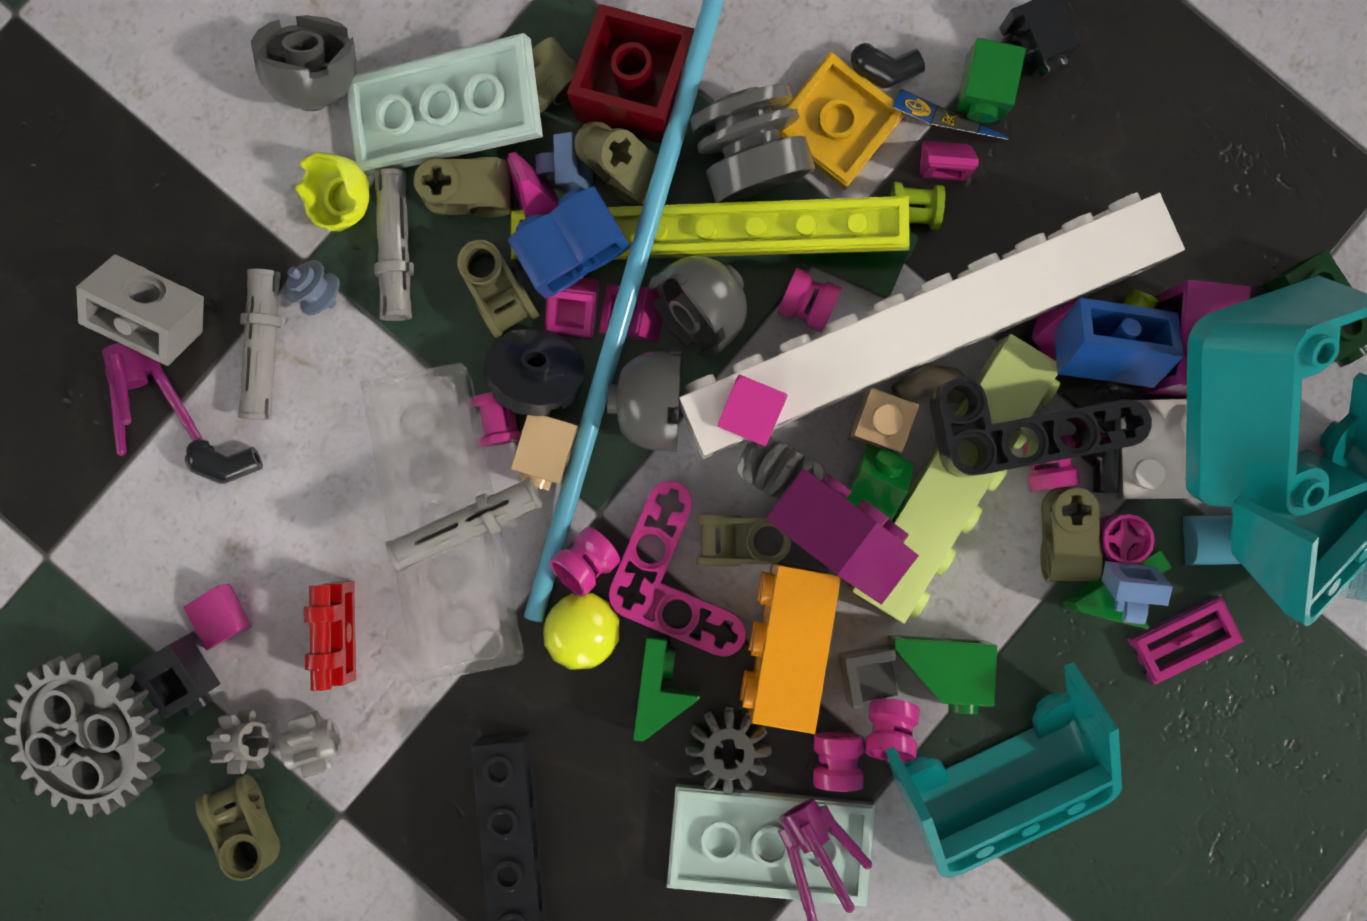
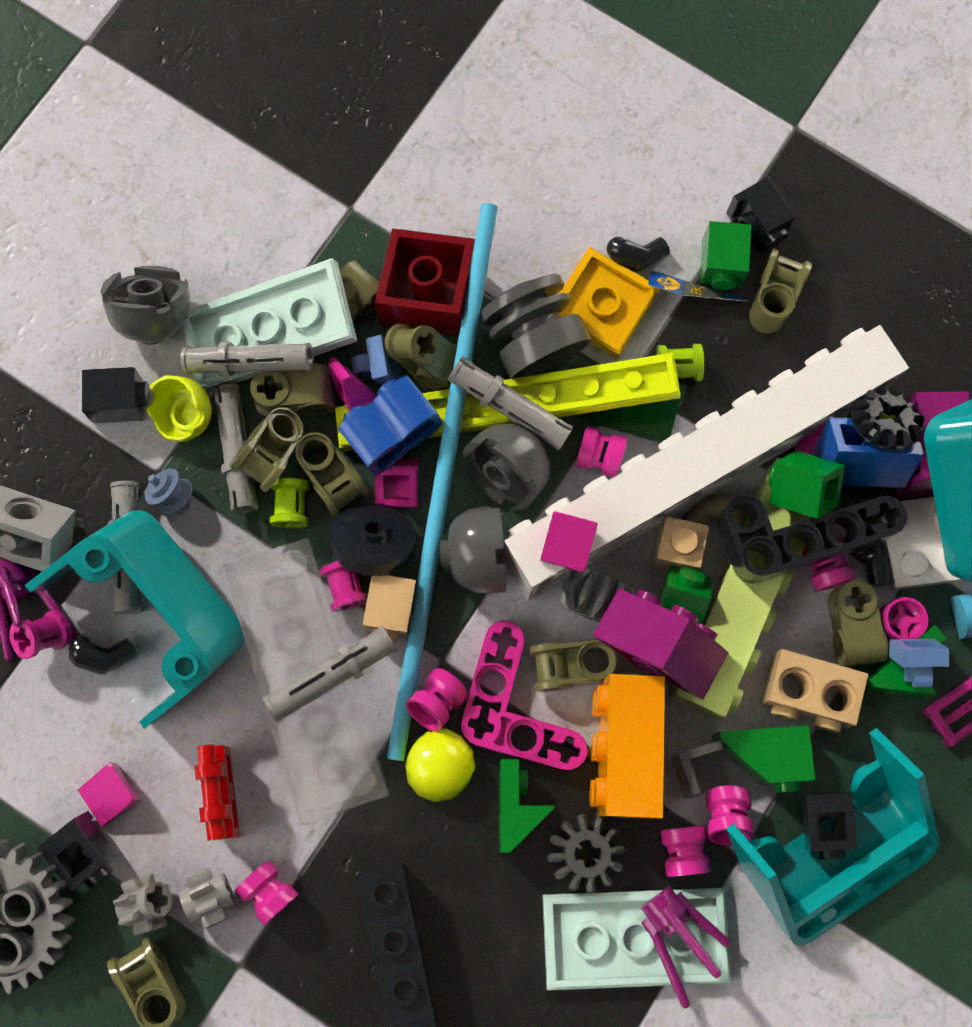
camera: 15 degrees left, 10 degrees down
(154, 433) = (40, 634): none -> dark pink bush
(260, 166) = (114, 395): none -> black brick
(297, 396) = (171, 584): none -> teal windscreen
(376, 747) = (268, 894): none -> dark pink wheel
(394, 141) = (231, 359): none -> light grey pin
(422, 256) = (269, 447): none -> olive piece
(447, 316) = (290, 503): none -> lime bush
(645, 321) = (462, 486): dark pink slope -> none
(701, 227) = (502, 398): none -> light grey pin
(947, 160) = (700, 324): dark pink slope -> none
(1012, 595) = (814, 680): none -> tan brick
(1012, 771) = (841, 810): none -> black brick
(1039, 373) = (806, 484): none -> green brick
(1049, 127) = (780, 286): none -> olive piece
(1142, 326) = (887, 433): none -> black gear

